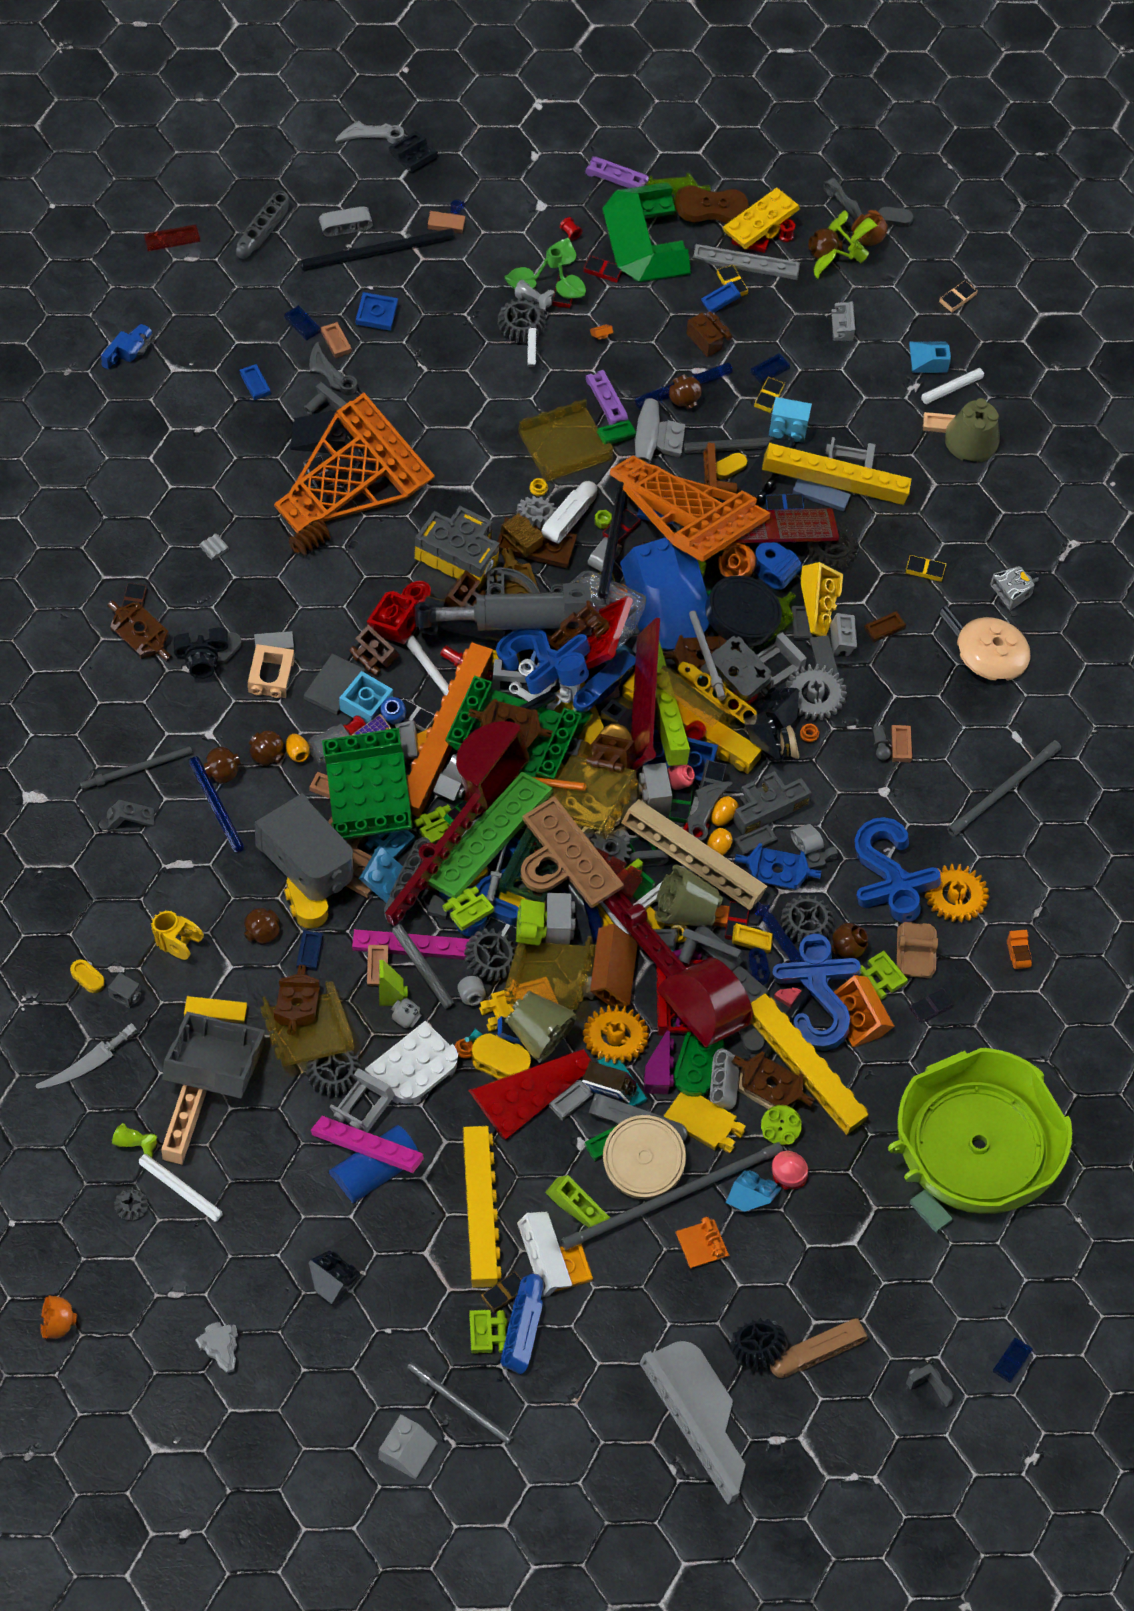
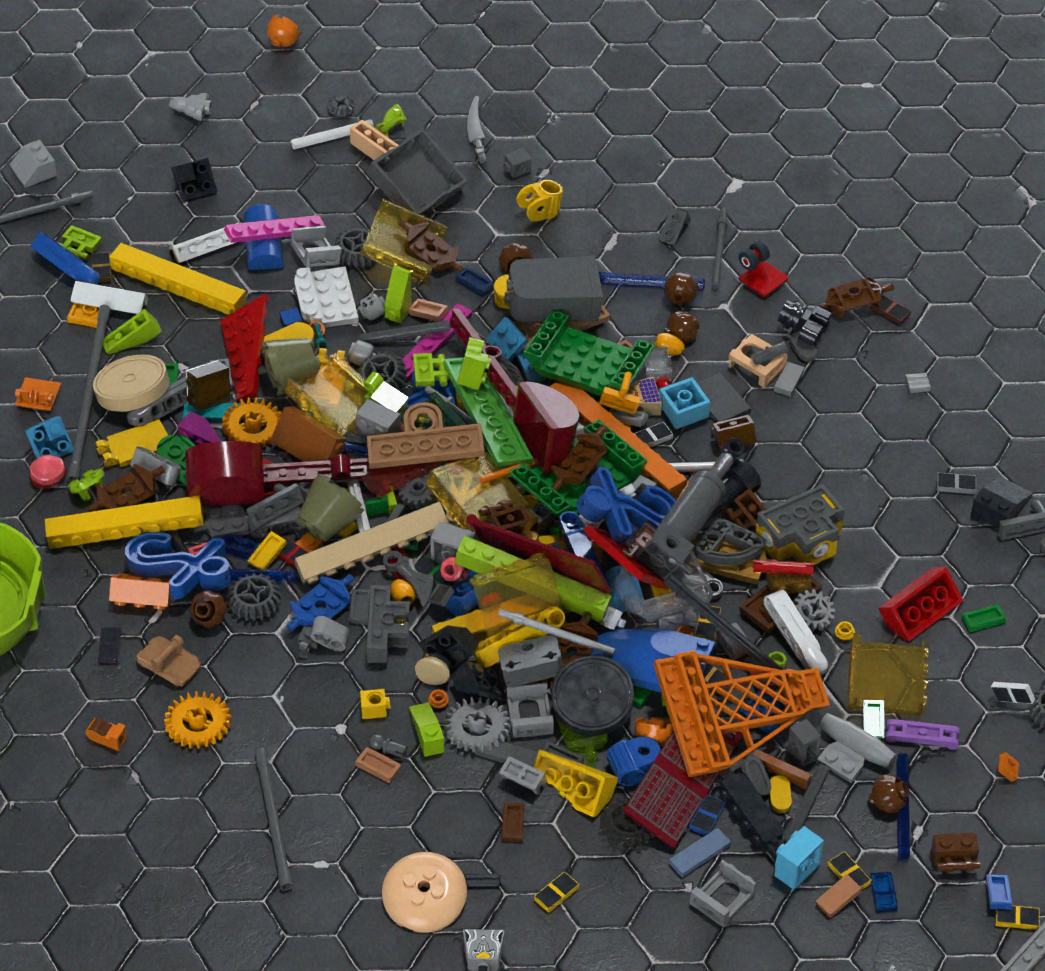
camera: 125 degrees right, 10 degrees down
(87, 976) = (548, 153): yellow tile -> none
(155, 714) = (760, 274): none -> red plate
(220, 1009) = (464, 208): yellow tile -> none
(269, 653) = (769, 353): none -> dark grey axle
(309, 536) = (883, 441): reddish brown piece -> none
(385, 449) = (949, 518): orange wing -> none
(389, 706) = (658, 410): blue head -> none
(396, 612) = (766, 460): red brick -> none
(408, 741) = (620, 399): none -> light orange plate
(408, 1215) = (200, 245): none -> white panel
(457, 403) = (983, 618): none -> green tile
(461, 851) = (473, 365): none -> lime hinge
(461, 1080) = (290, 316): none -> blue tile
(474, 446) = (921, 603): none -> red slope
(528, 535) = (782, 567): none -> red pin
(681, 458) = (803, 743): none -> dark grey brick
(720, 840) = (373, 573): light orange animal -> none
(731, 479) = (756, 774): none -> dark grey tile
(797, 390) = (838, 895): none -> nougat tile
(836, 474) = (705, 859): yellow brick -> none
(844, 724) = (427, 729): none -> lime slope
(853, 779) = (374, 704): none -> yellow brick
(886, 971) = (166, 627): lime plate -> none
(899, 886) = (226, 673): blue piece -> none

